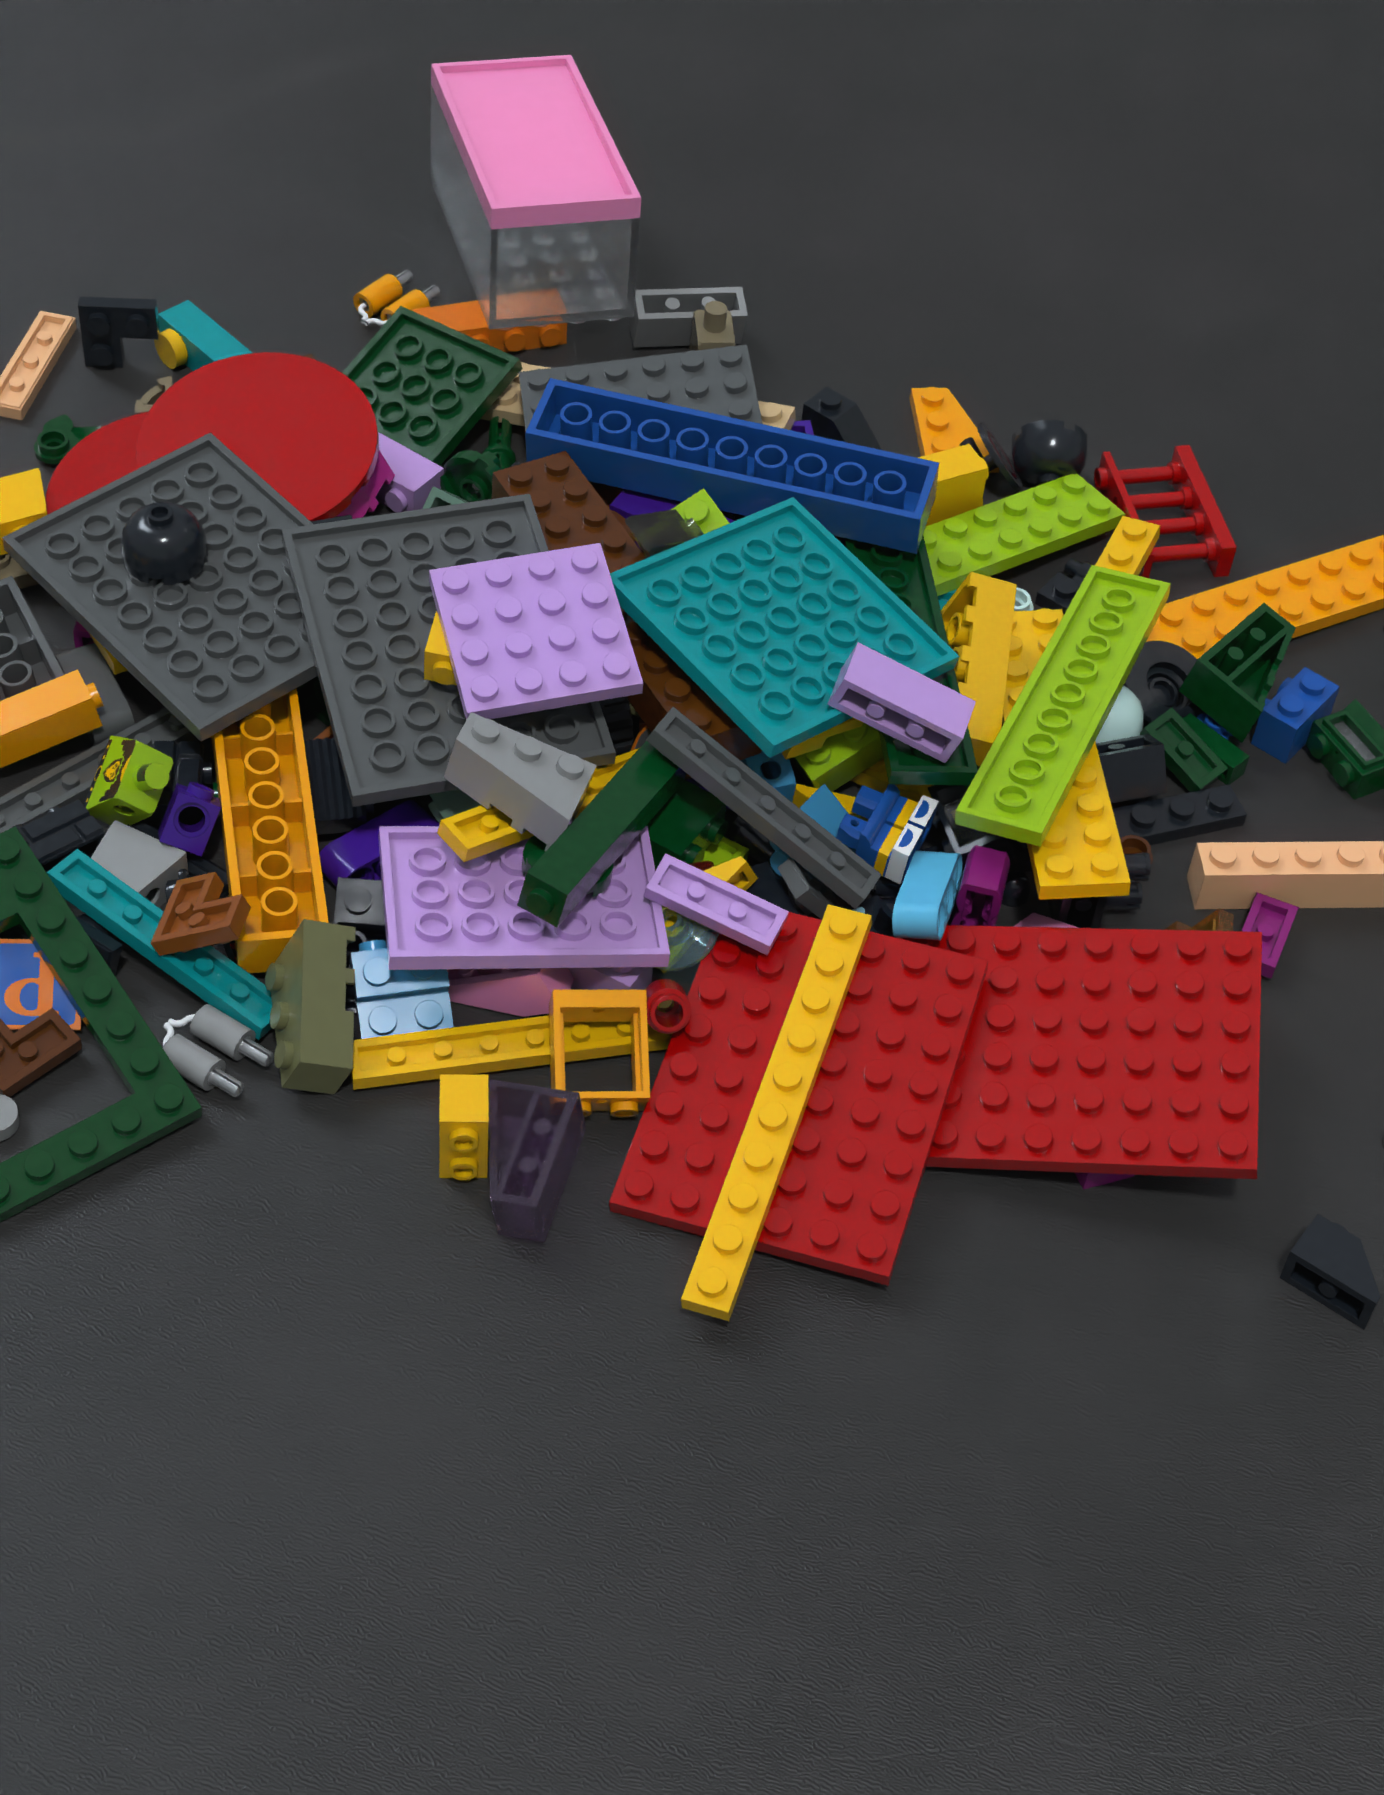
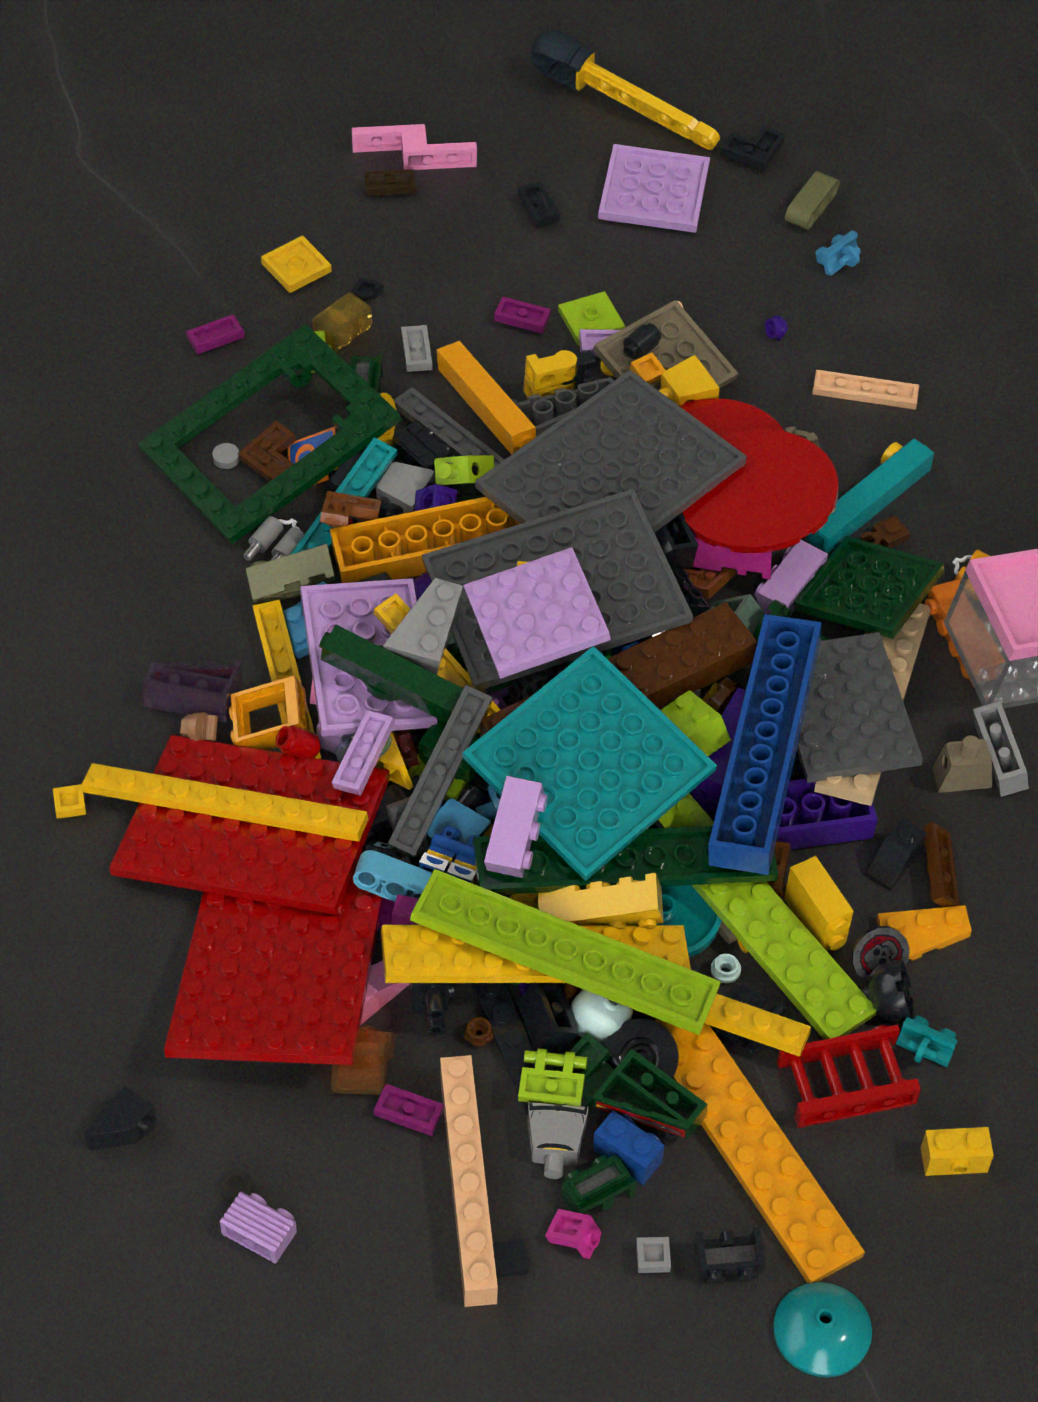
camera: 90 degrees right, 5 degrees up
(59, 438) = (790, 414): dark green plate -> none
(108, 321) = (887, 414): black plate -> none
(163, 543) = (625, 440): black cylinder -> none
(463, 1126) = (207, 644): yellow brick -> none
(600, 1158) = (199, 726): none -> medium nougat piece
(661, 530) = (656, 686): clear smoke slope -> none
(740, 1347) = (69, 801): none -> yellow plate
(892, 401) = (941, 866): none -> reddish brown plate
(1113, 436) = (927, 1042): none -> teal hips
(1230, 767) = (552, 1086): none -> lime plate
(1258, 436) = (956, 1151): none -> yellow brick
(1286, 785) = (556, 1135): none -> light grey torso

